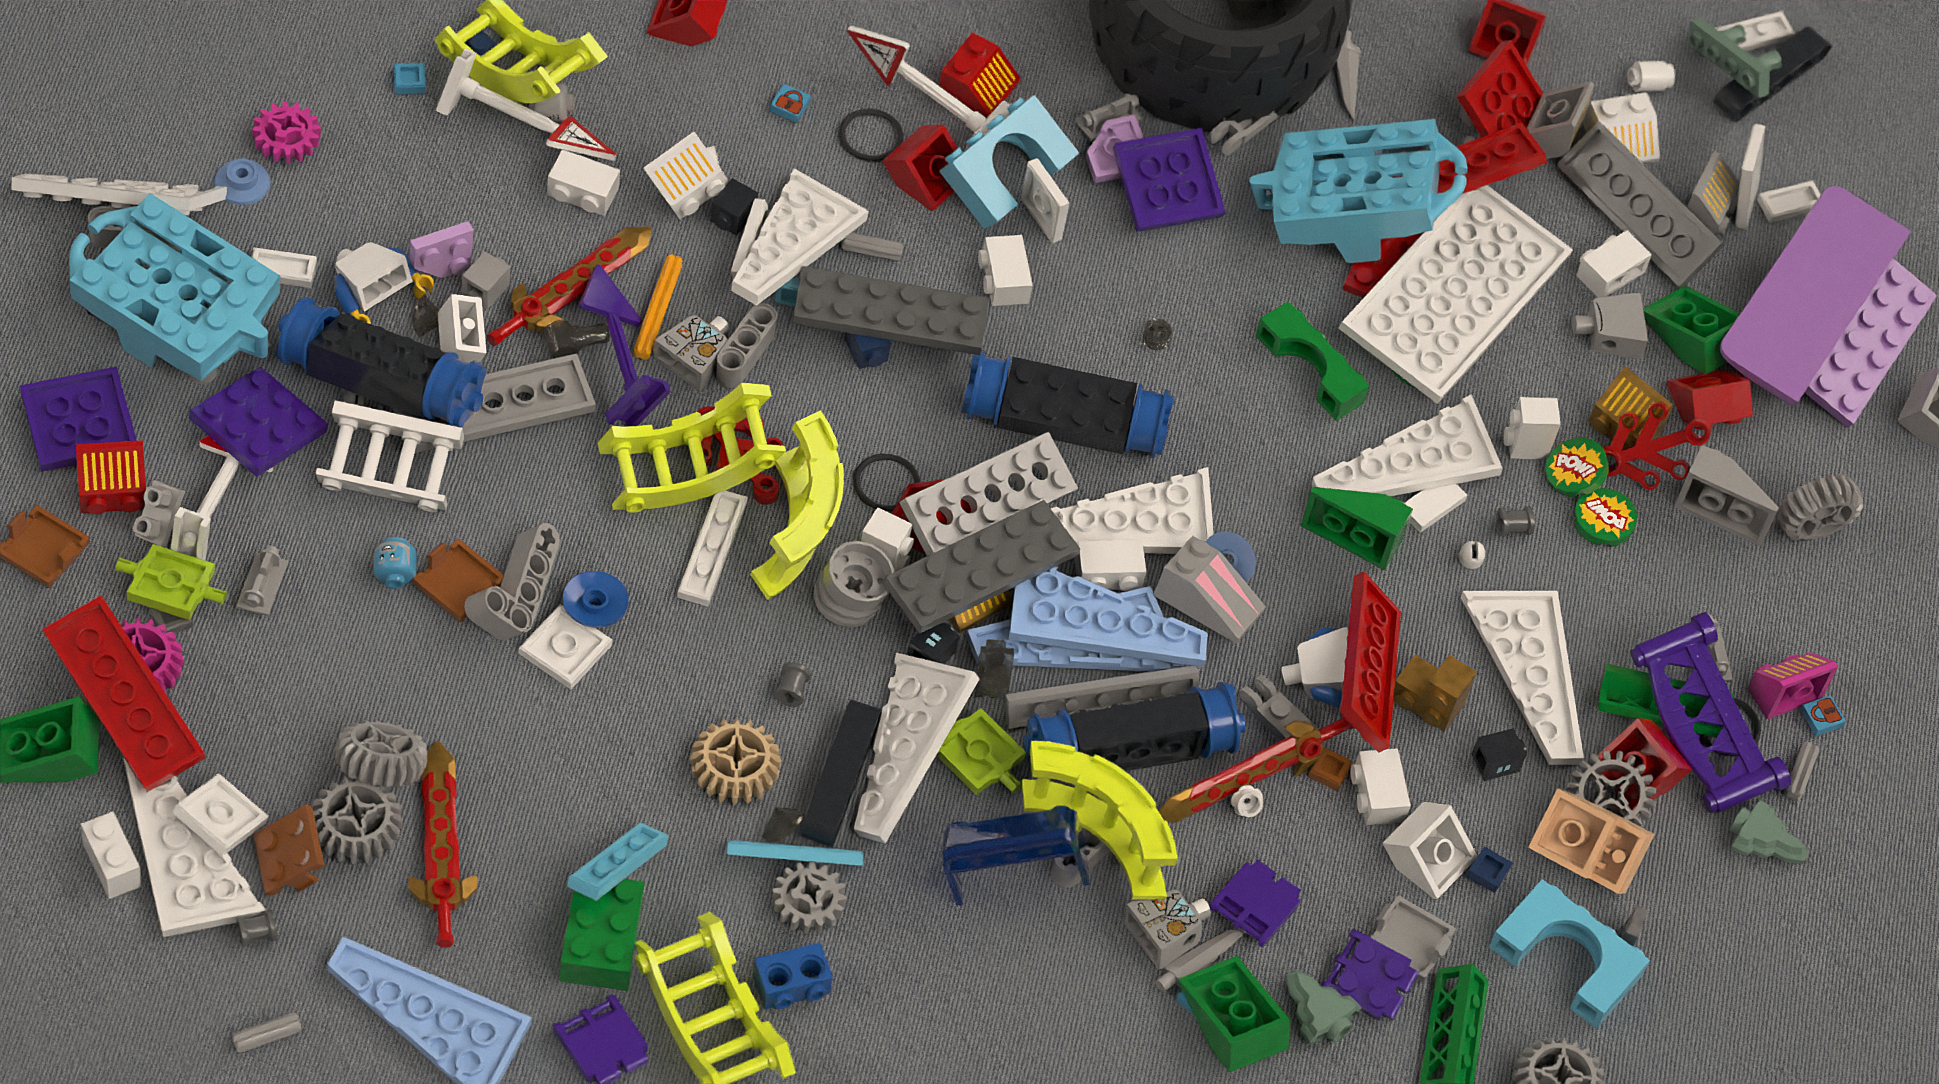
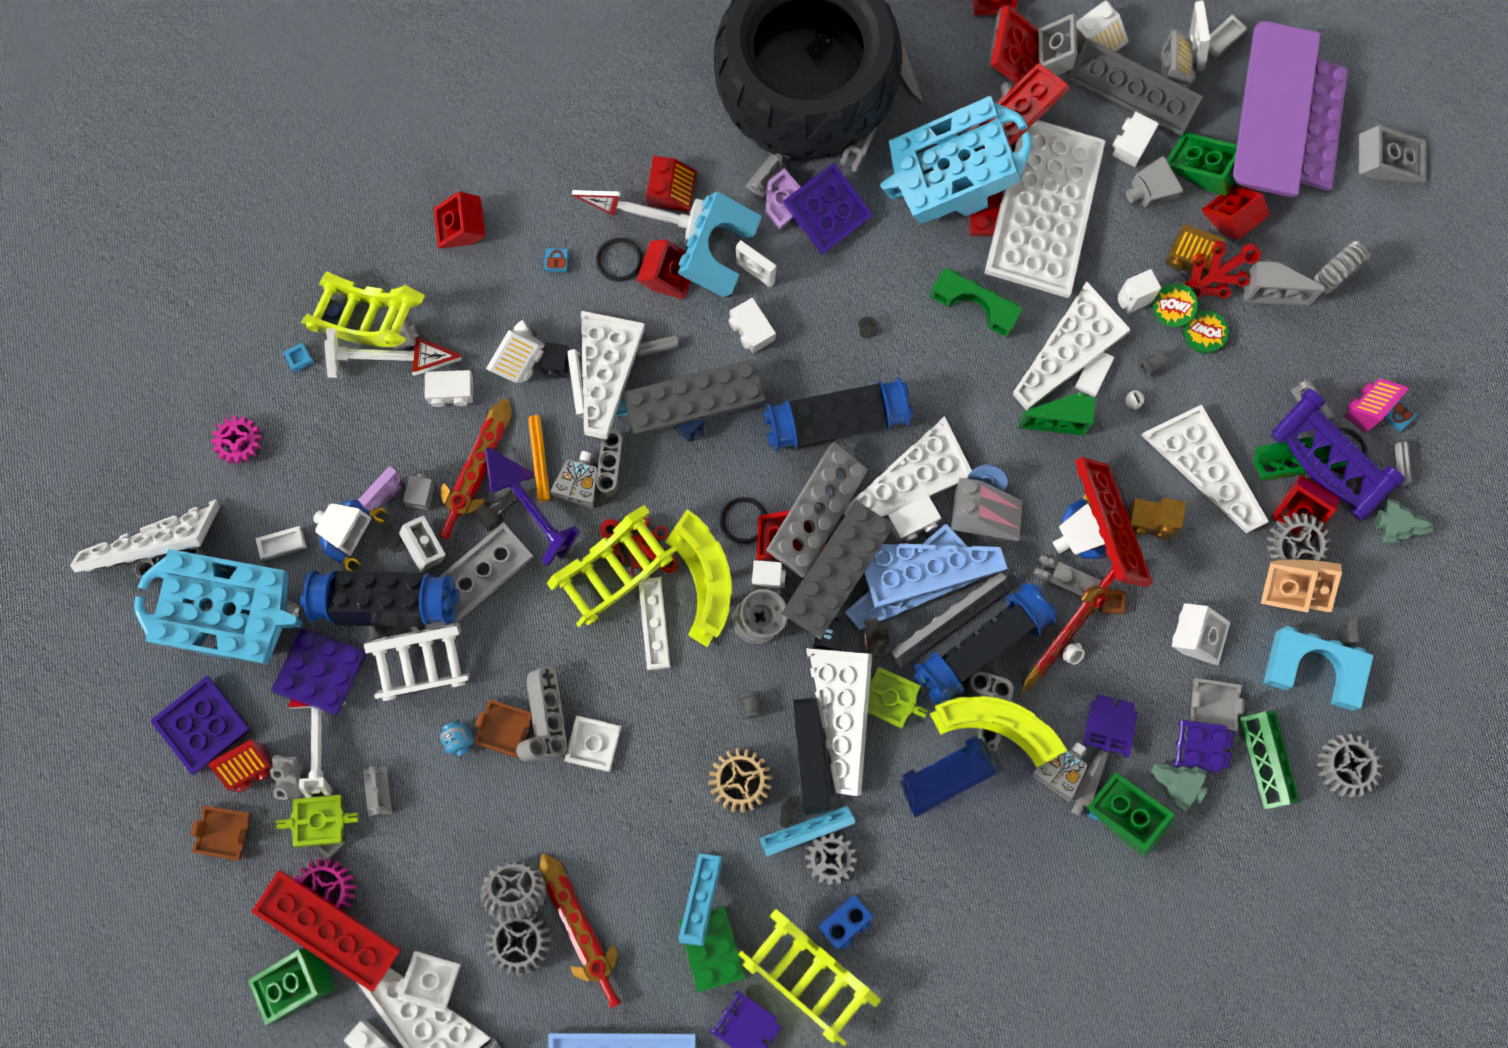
camera: 15 degrees left, 20 degrees up
(247, 189) = (233, 491): medium blue piece -> none
(289, 851) = (486, 988): dark orange piece -> none
(599, 589) = (595, 691): blue dish -> none
(1381, 787) = (1152, 604): white brick -> none
(1489, 869) = (1243, 630): dark blue plate -> none
(1499, 754) = (1215, 543): black brick -> none

